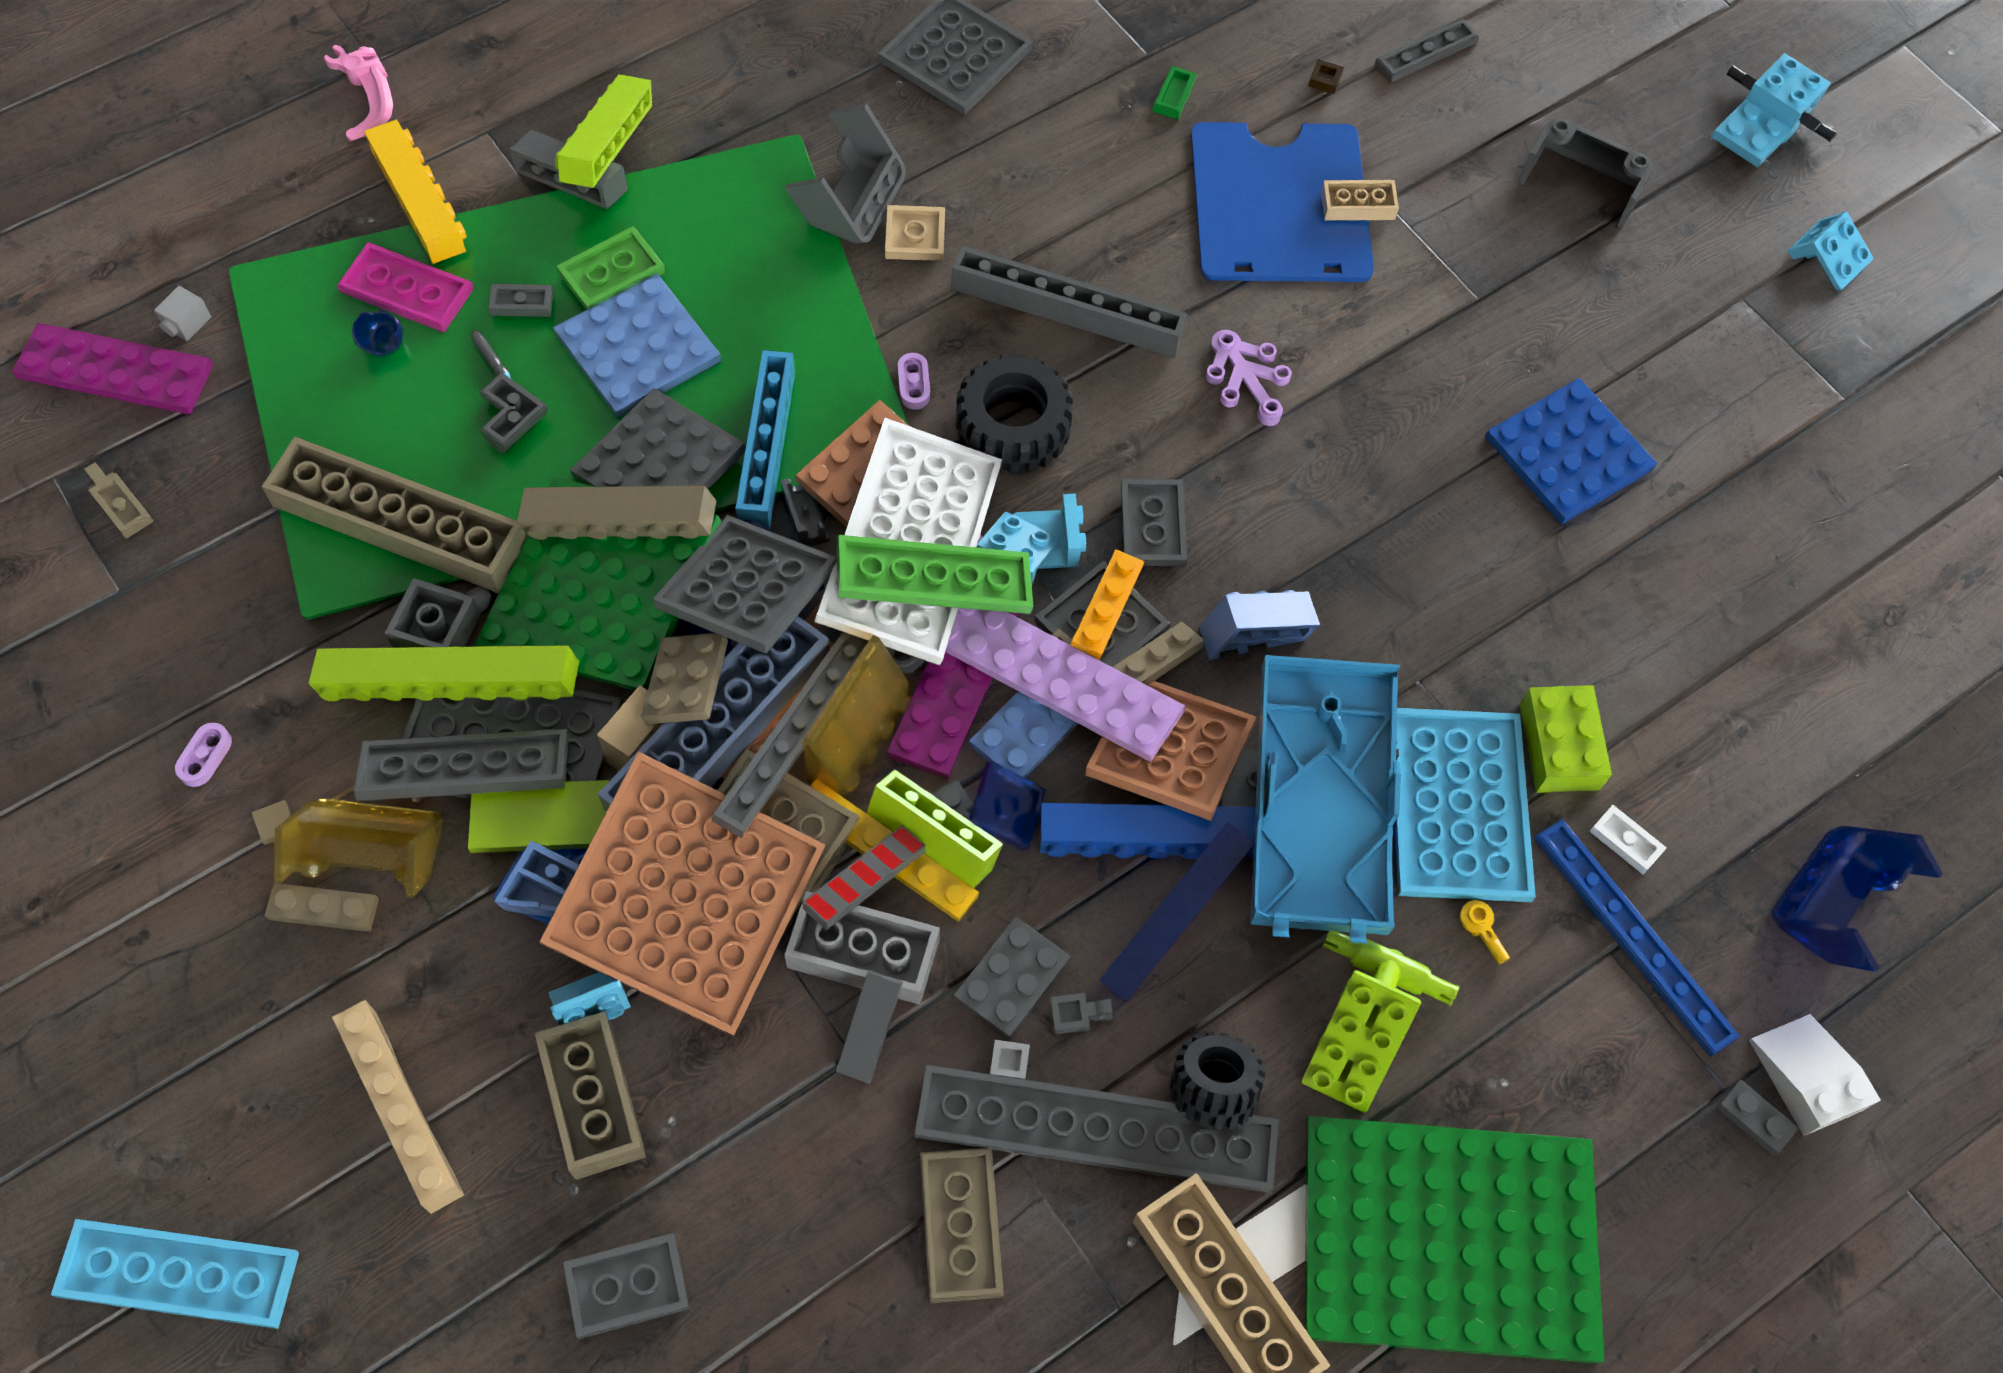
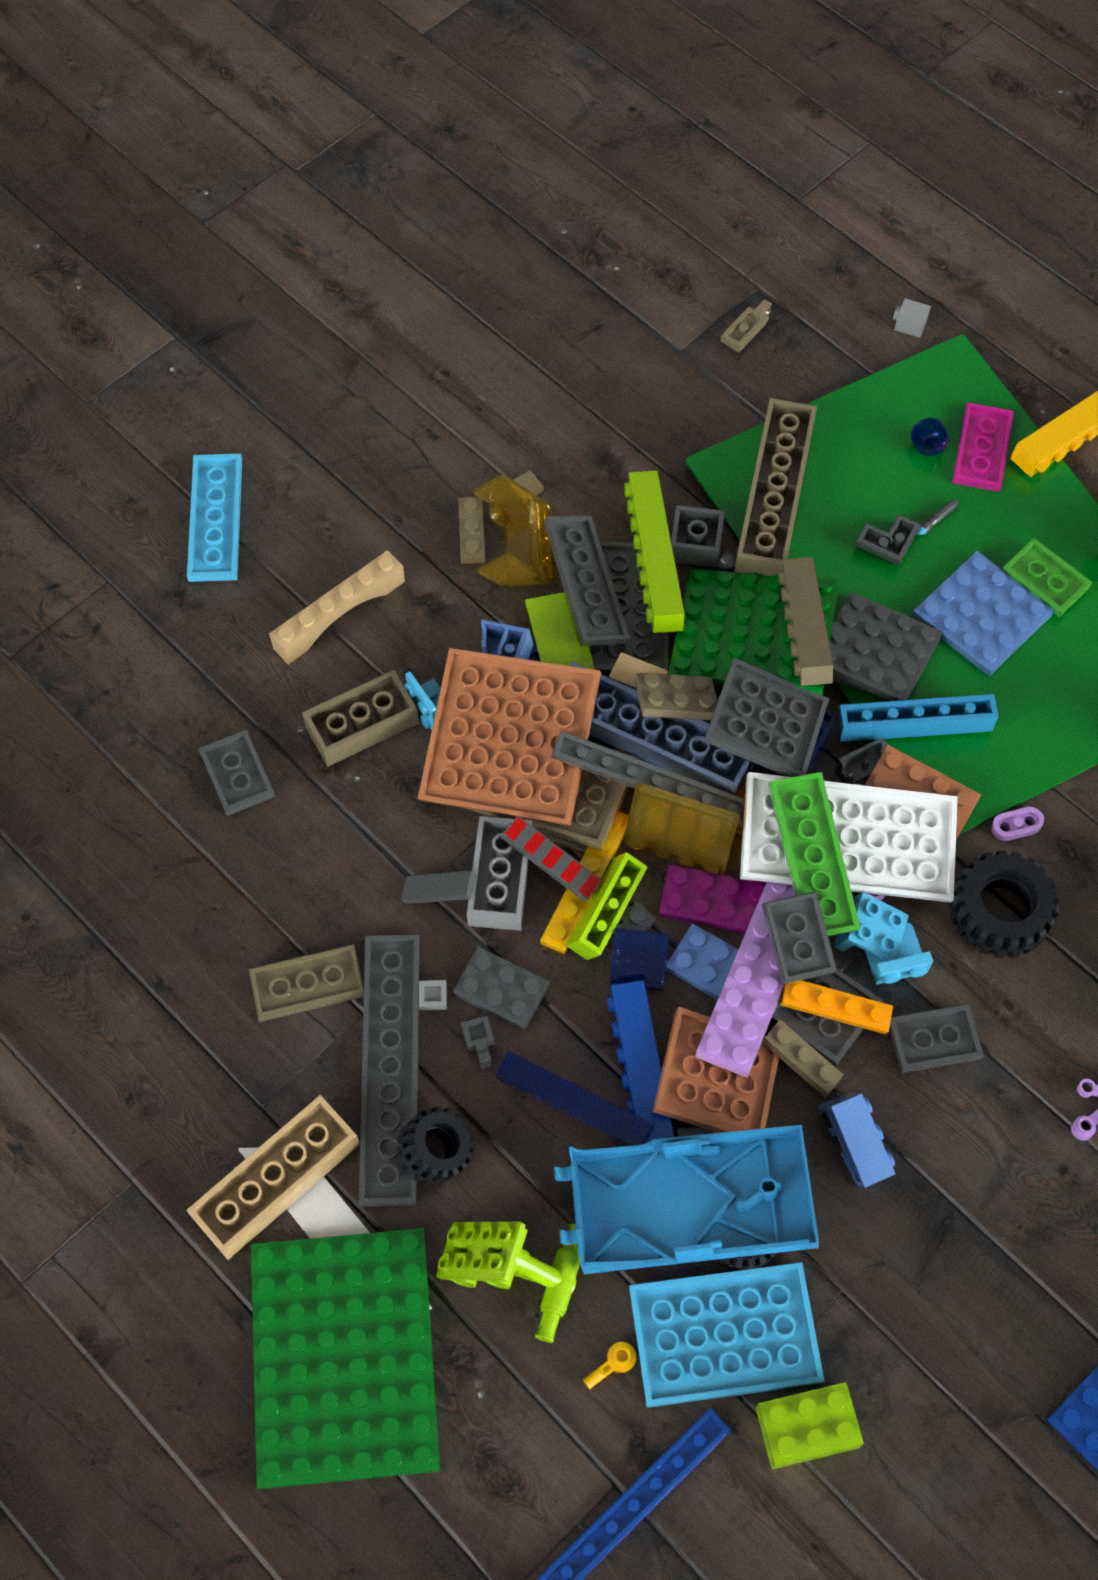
camera: 85 degrees right, 0 degrees up
(113, 368) = (855, 294): magenta plate -> none
(200, 754) = (567, 431): lavender plate -> none
(521, 300) = (995, 523): dark grey plate -> none
(1032, 614) = (799, 937): none -> dark grey tile
(1628, 839) = (723, 1493): white plate -> none

